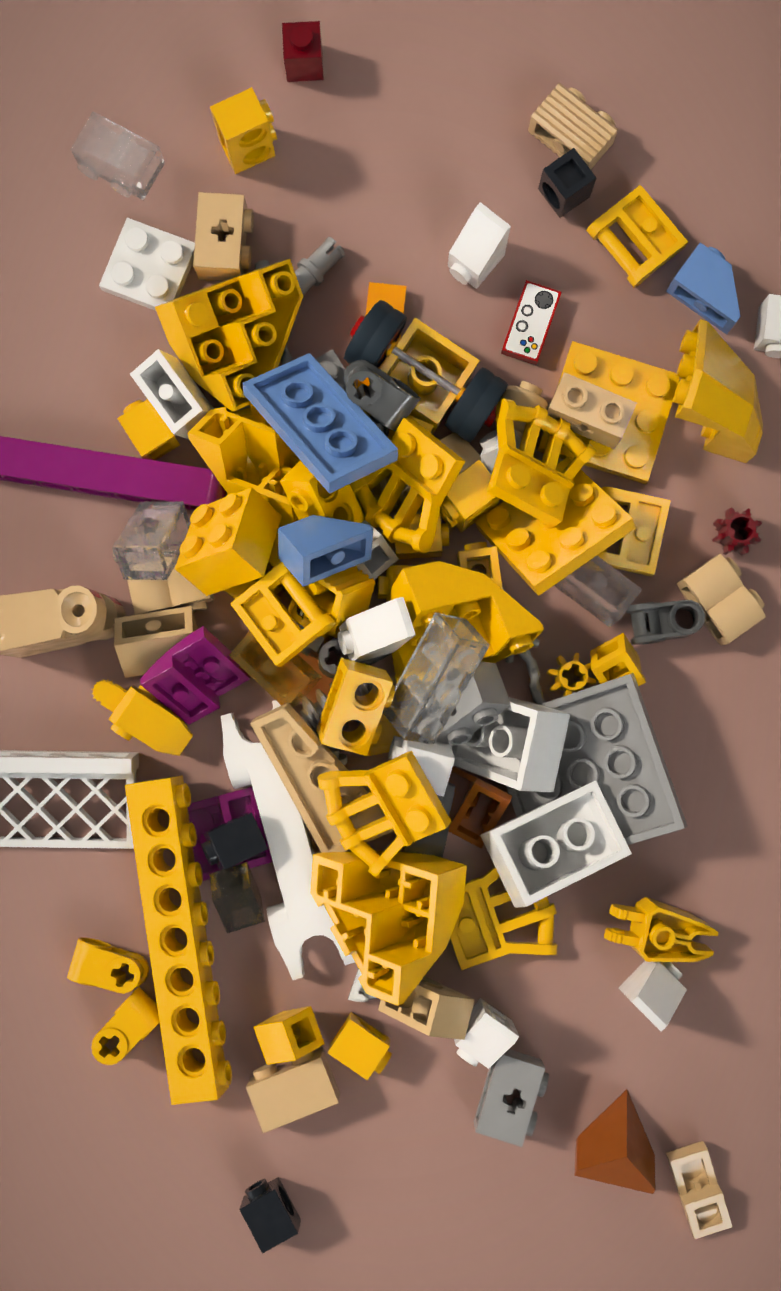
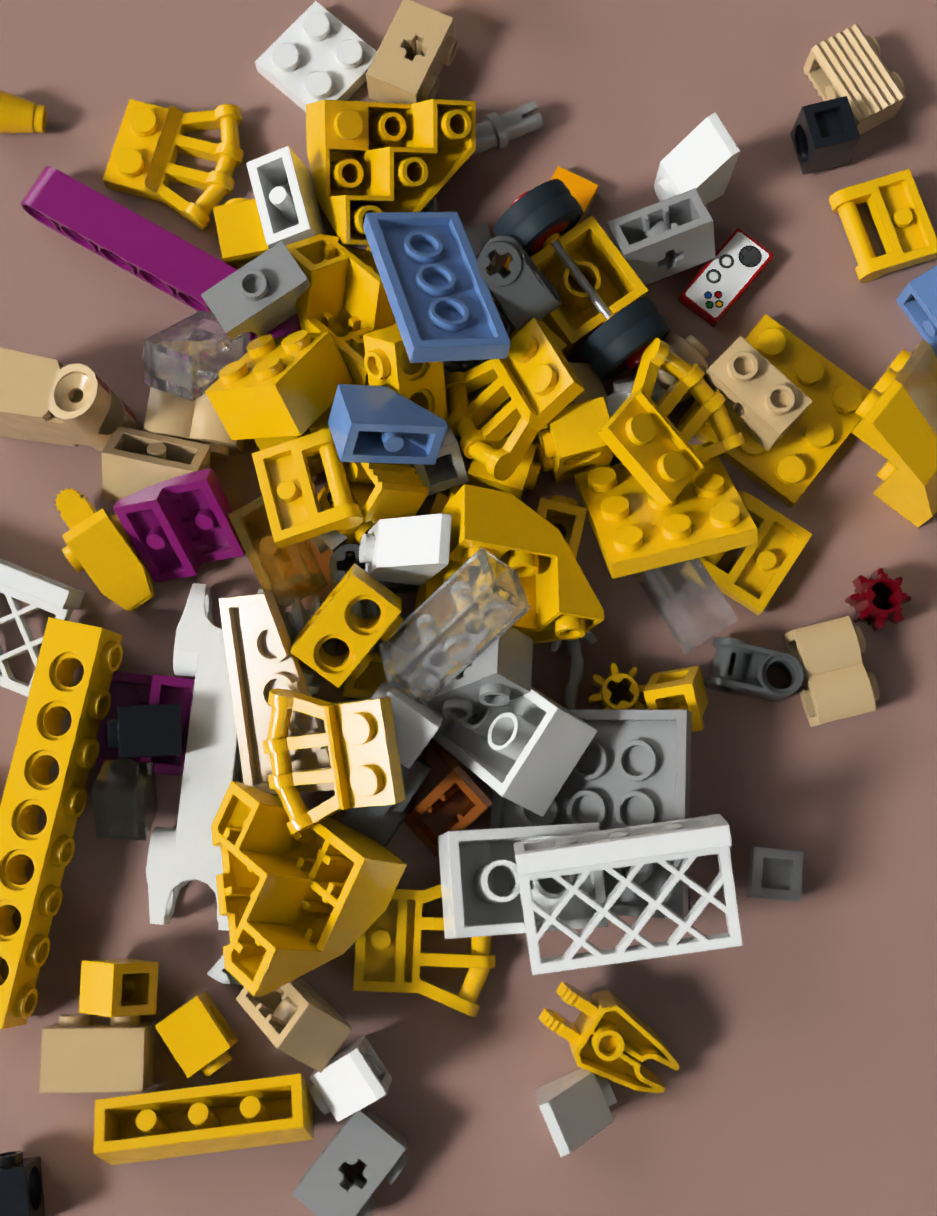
camera: 20 degrees right, 5 degrees down
(43, 385) = (149, 147): none -> yellow plate
(184, 476) = (258, 293): none -> light grey brick
(390, 1105) = (203, 1119): none -> yellow brick
(474, 311) = (665, 236): none -> light grey brick
(631, 792) = (625, 848): none -> white fence
(735, 765) = (775, 874): none -> light grey plate

